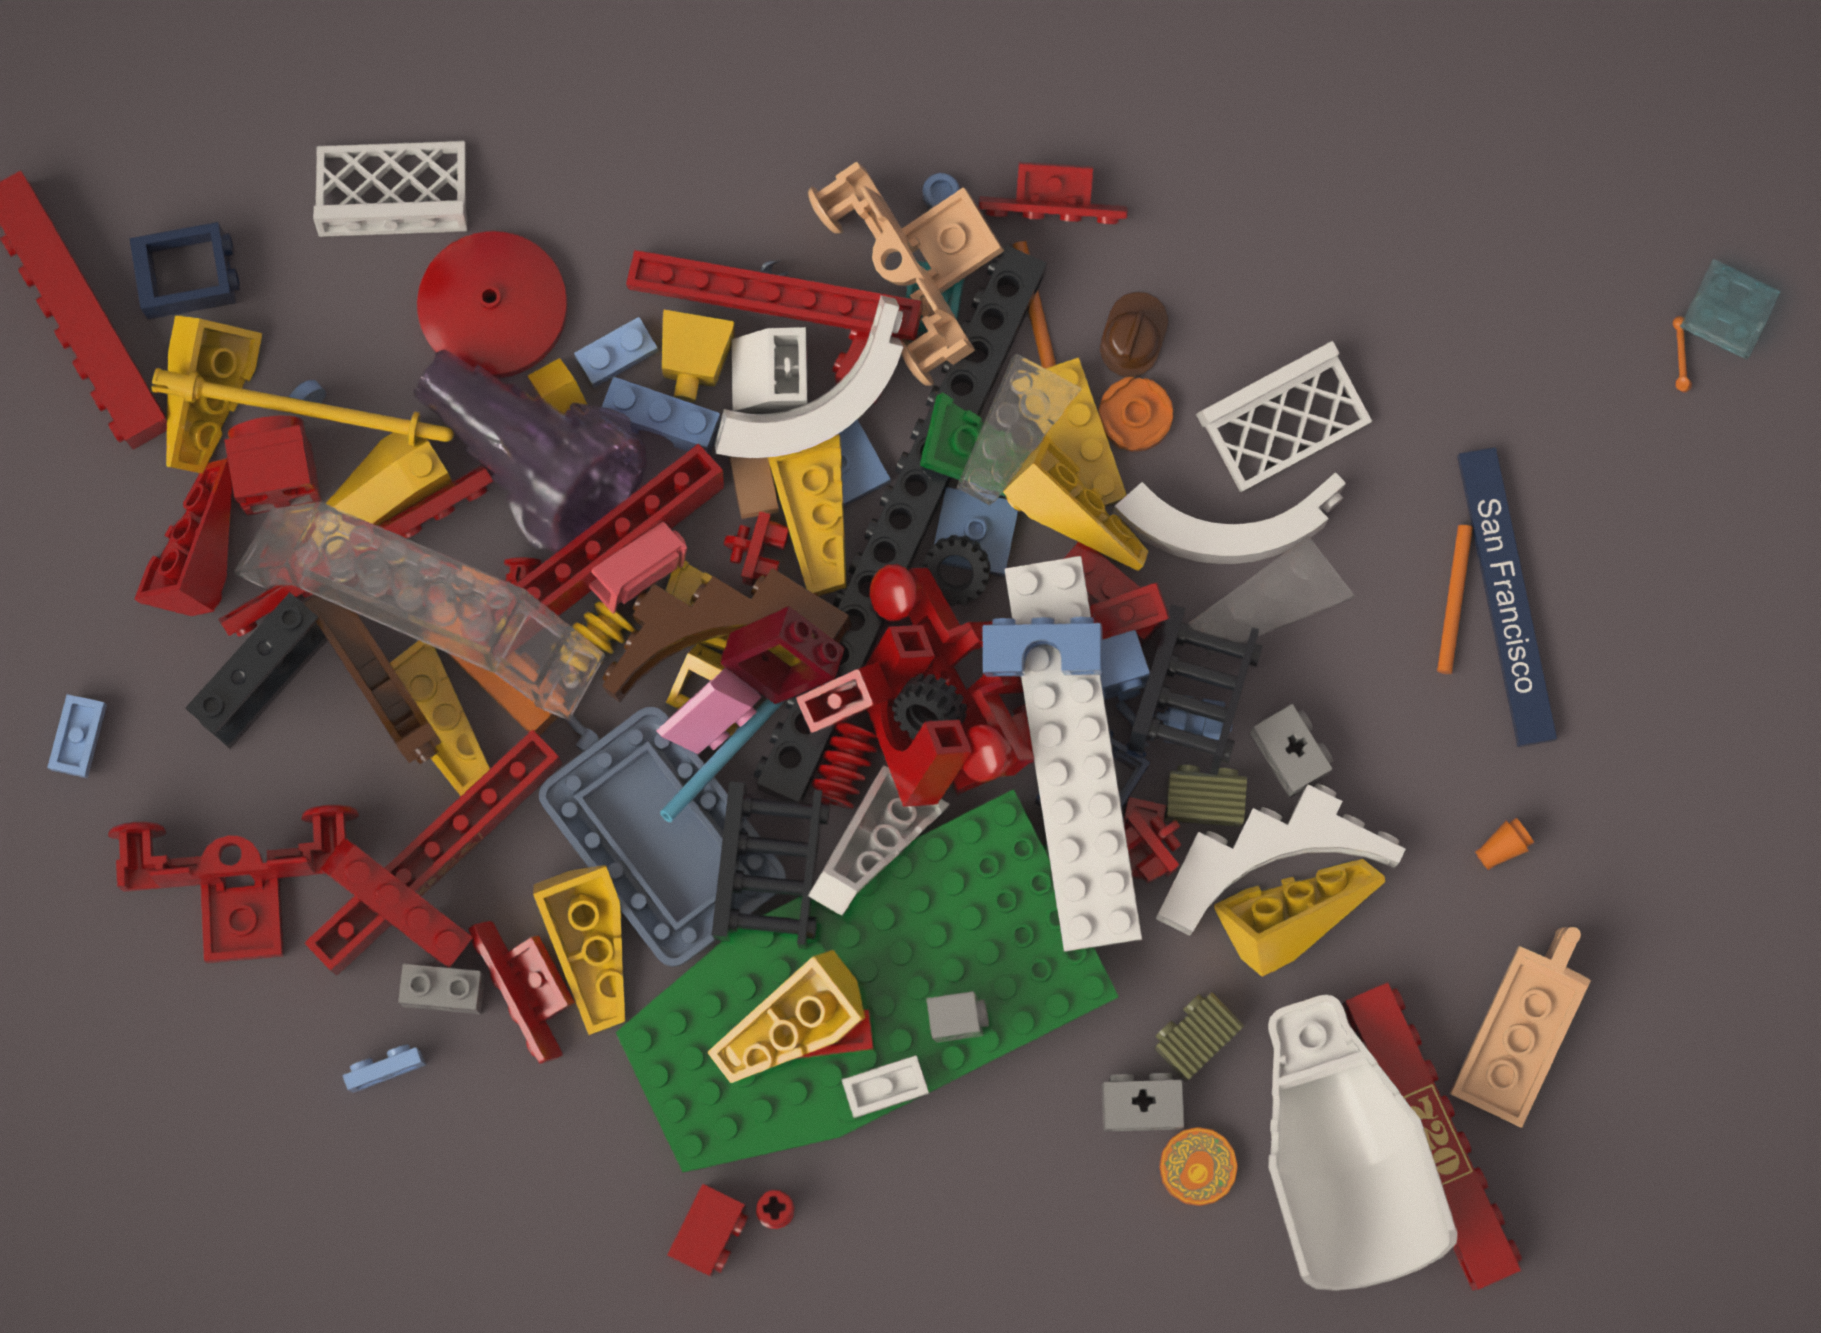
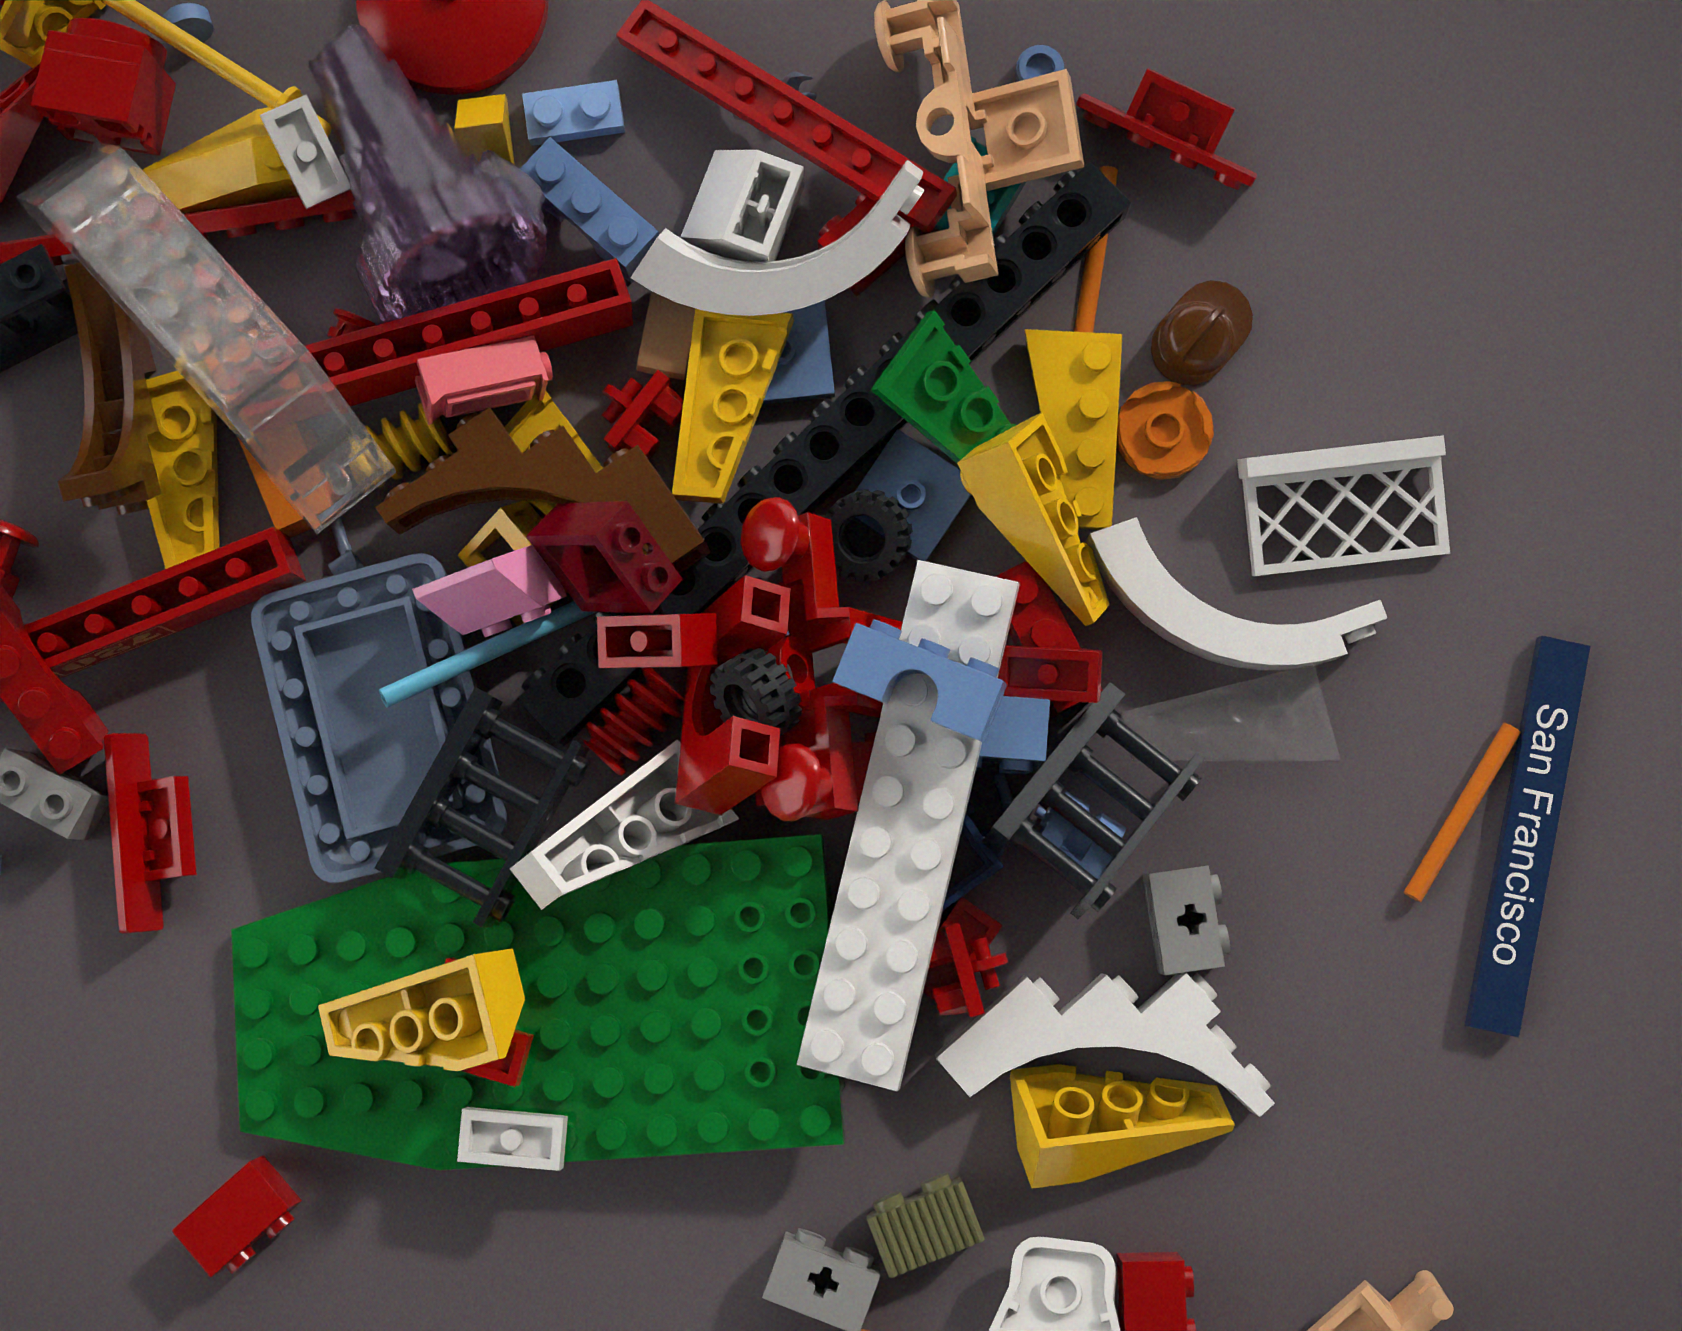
camera: 30 degrees right, 5 degrees up
(446, 455) = (305, 151): none -> white plate
(585, 930) = (238, 799): yellow wedge -> none
(694, 351) = (663, 146): yellow torso -> none
(784, 1216) = (344, 1215): red bush -> none
(957, 1016) = (626, 1096): light grey brick -> none
(1018, 419) = (1015, 380): clear wing -> none
(1206, 797) = (1053, 936): olive brick -> none
(1506, 843) = (1400, 1142): orange cone -> none

